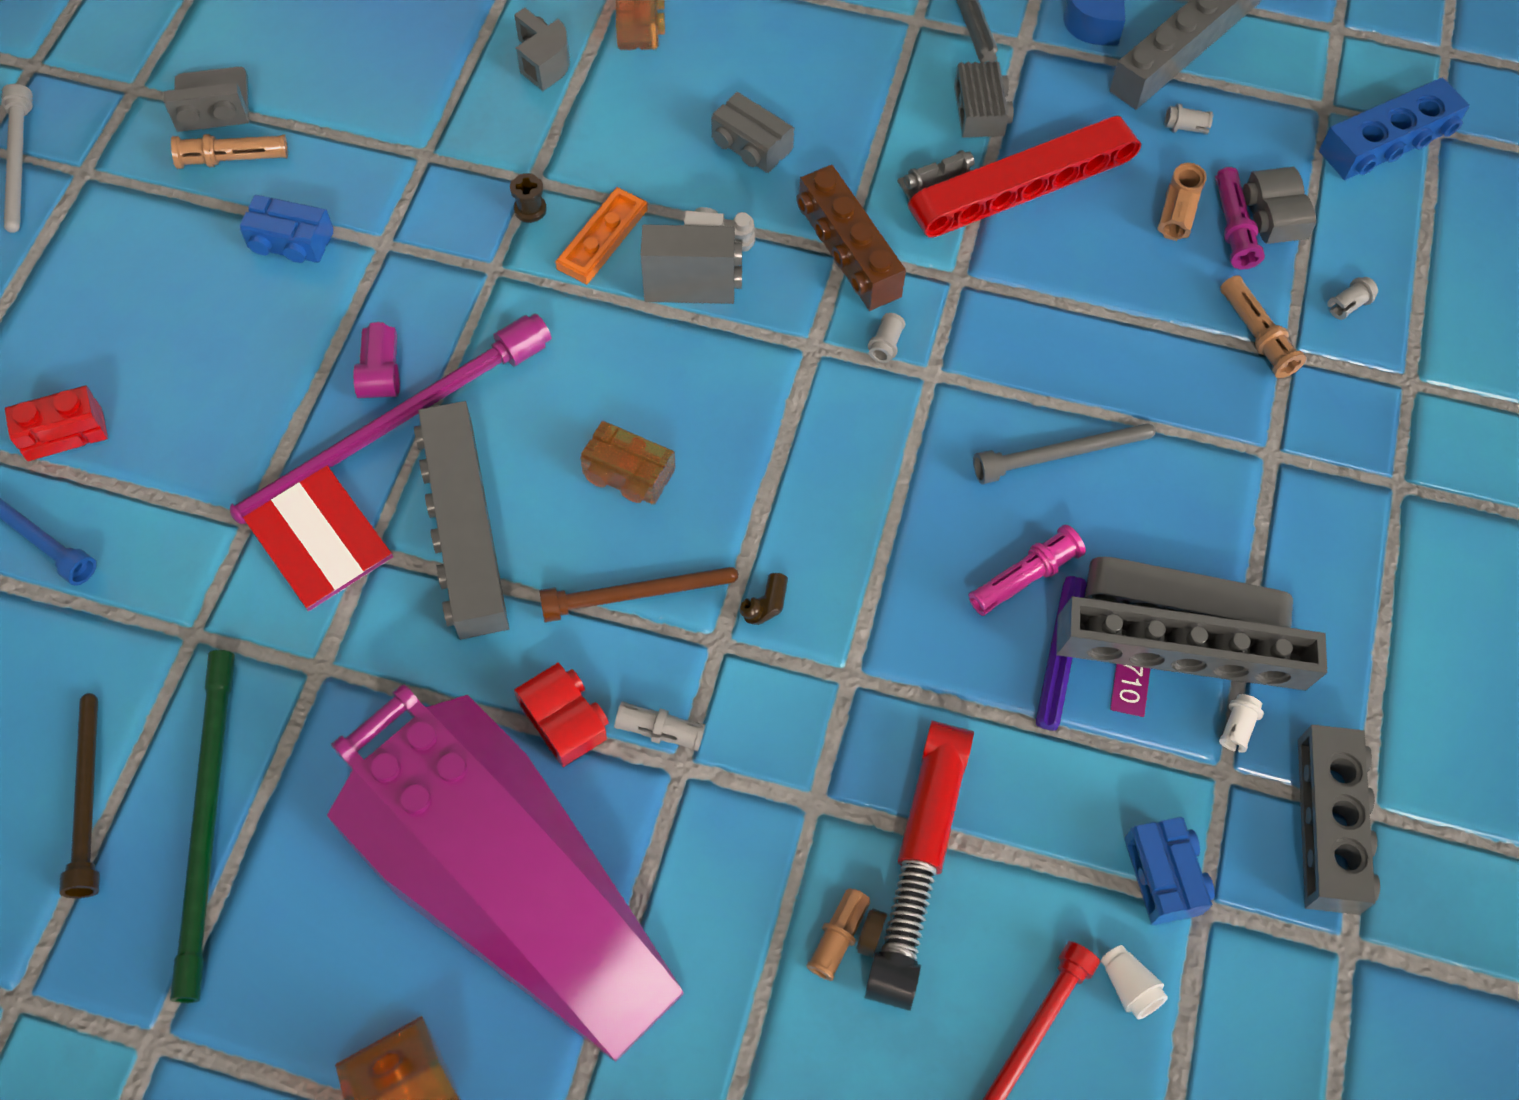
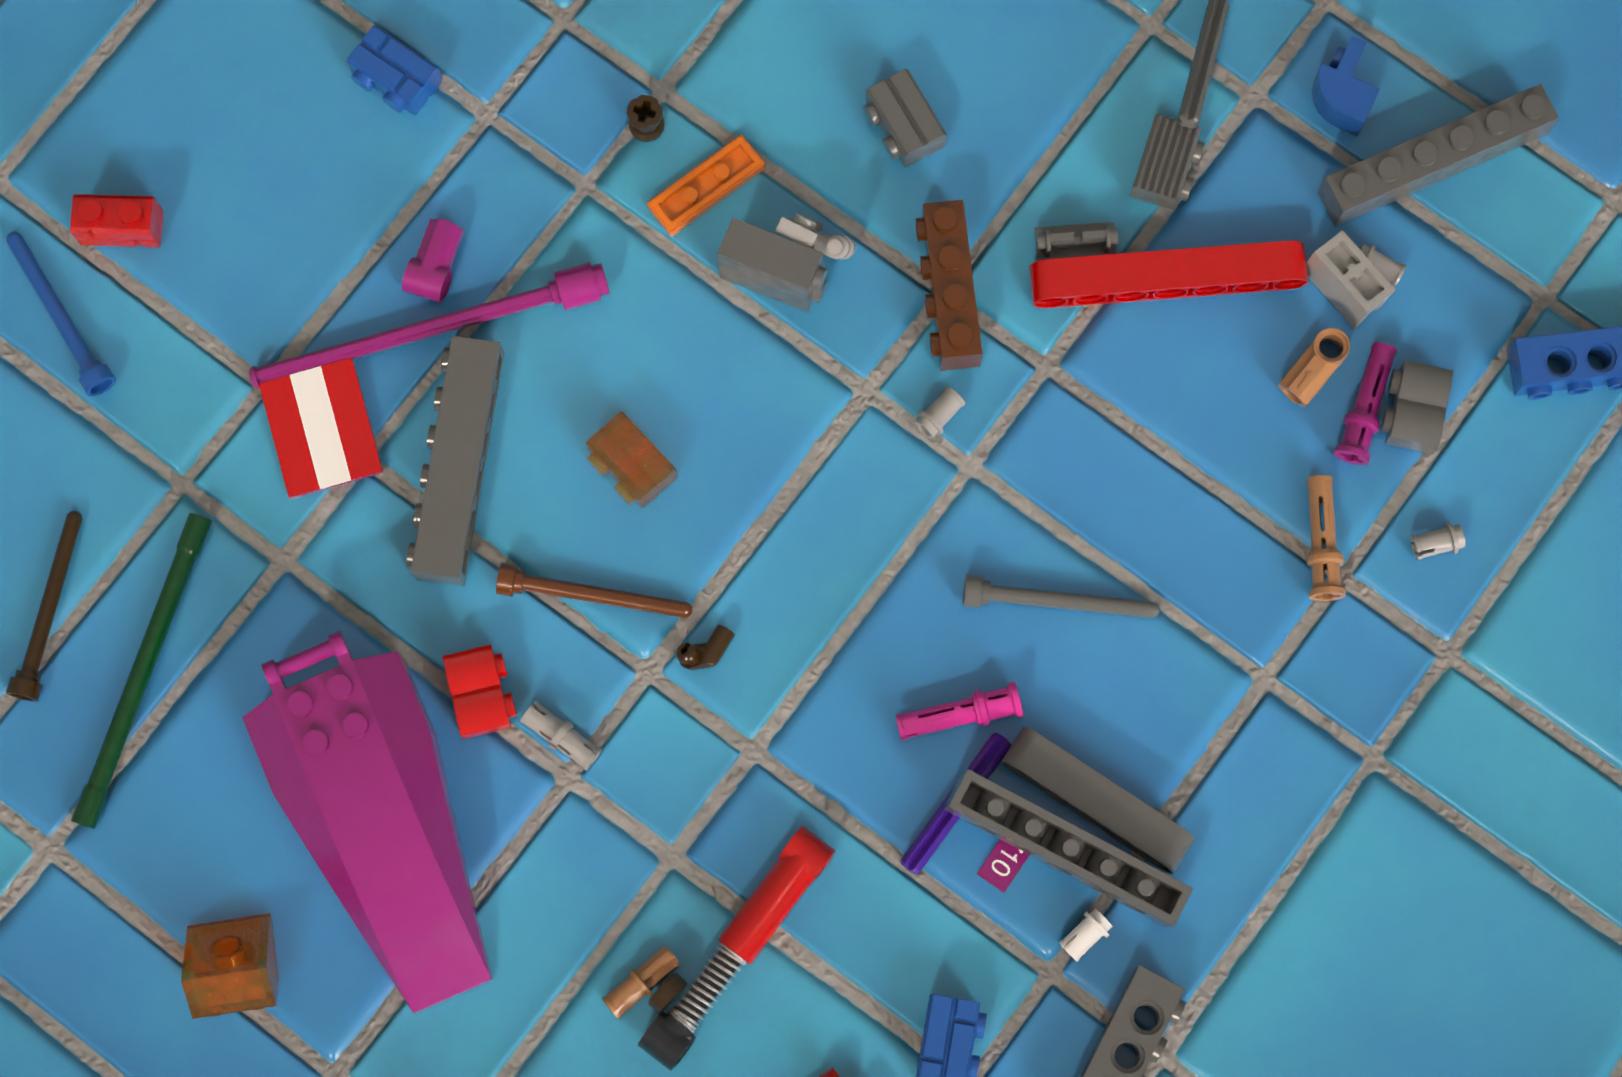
camera: 25 degrees right, 15 degrees up
(1172, 133) = (1348, 279): none -> light grey hinge

